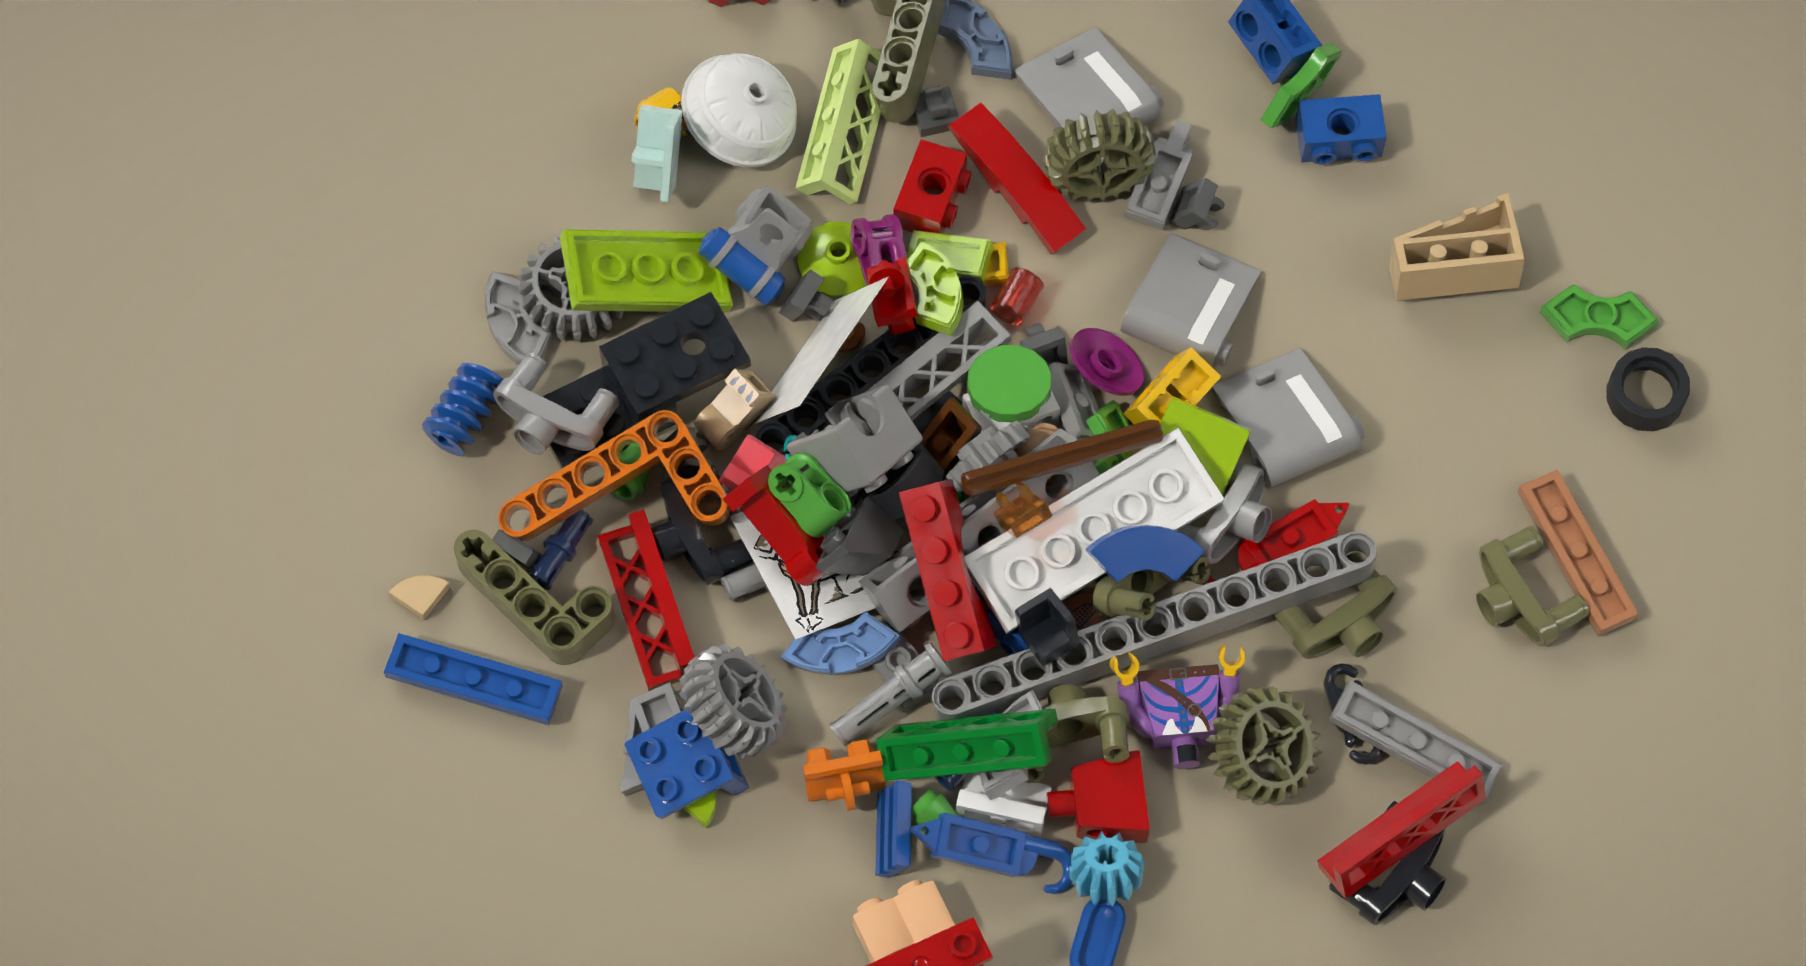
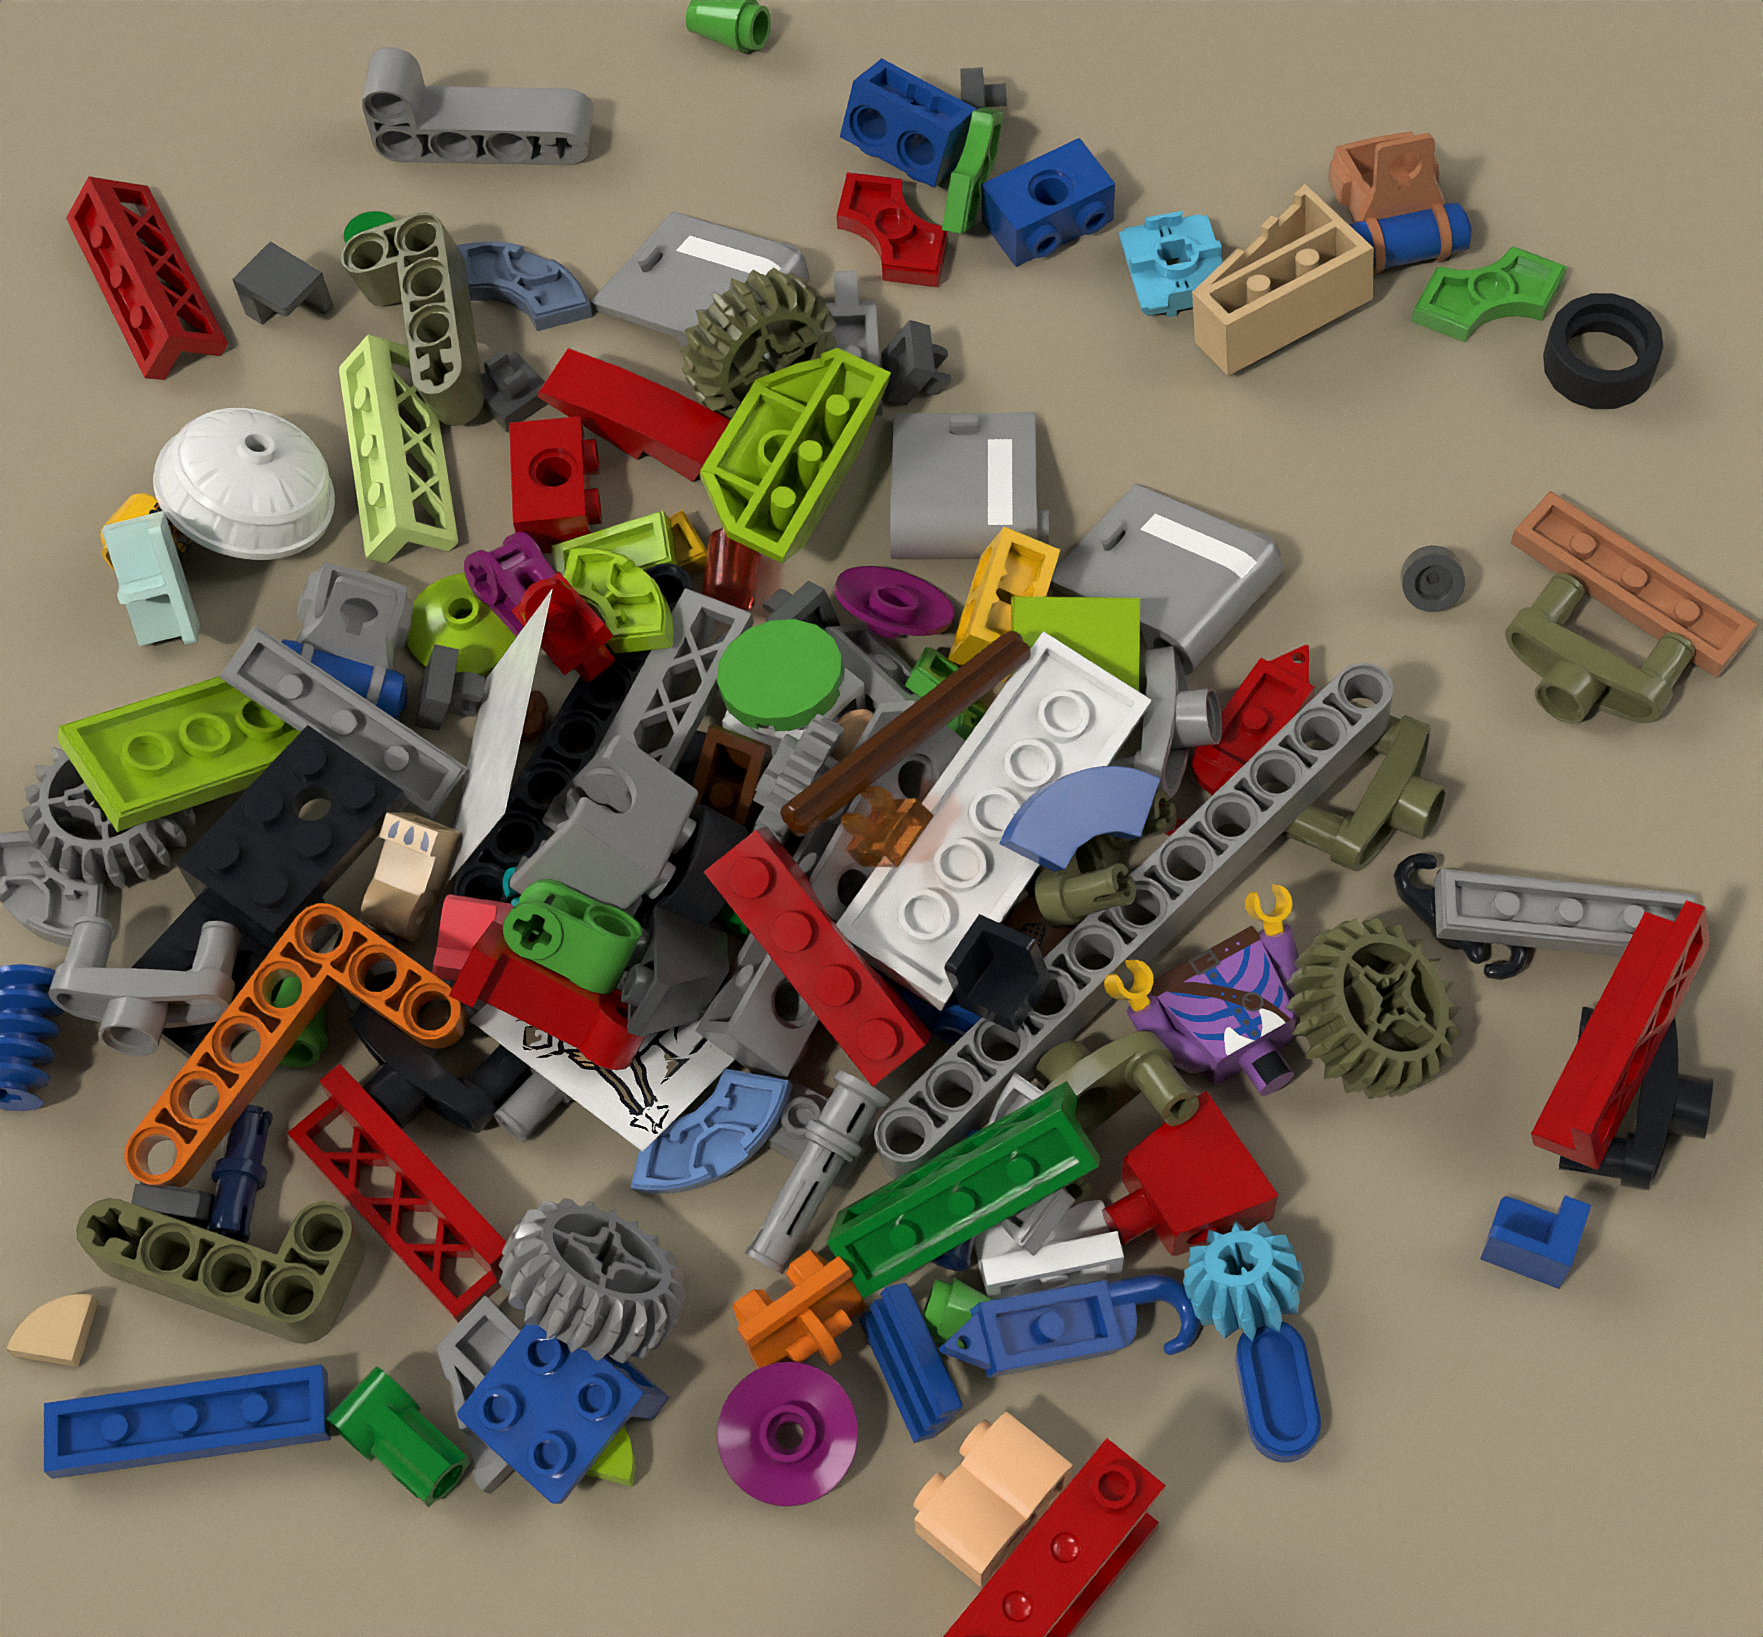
camera: 20 degrees left, 5 degrees down
(583, 731) = (387, 1426): none -> green piece
(735, 294) = (311, 697): none -> light grey tile
(789, 822) = (757, 1412): none -> magenta dish
(1087, 235) = (791, 450): none -> lime wedge
(1236, 117) = (907, 245): none -> red tile
(1292, 922) = (1536, 1240): none -> blue panel
(1333, 30) = (979, 94): none -> dark grey tile
(1388, 189) = (1163, 238): none -> medium azure piece
(1451, 494) = (1432, 578): none -> dark grey tile
(1567, 227) = (1397, 199): none -> nougat piece

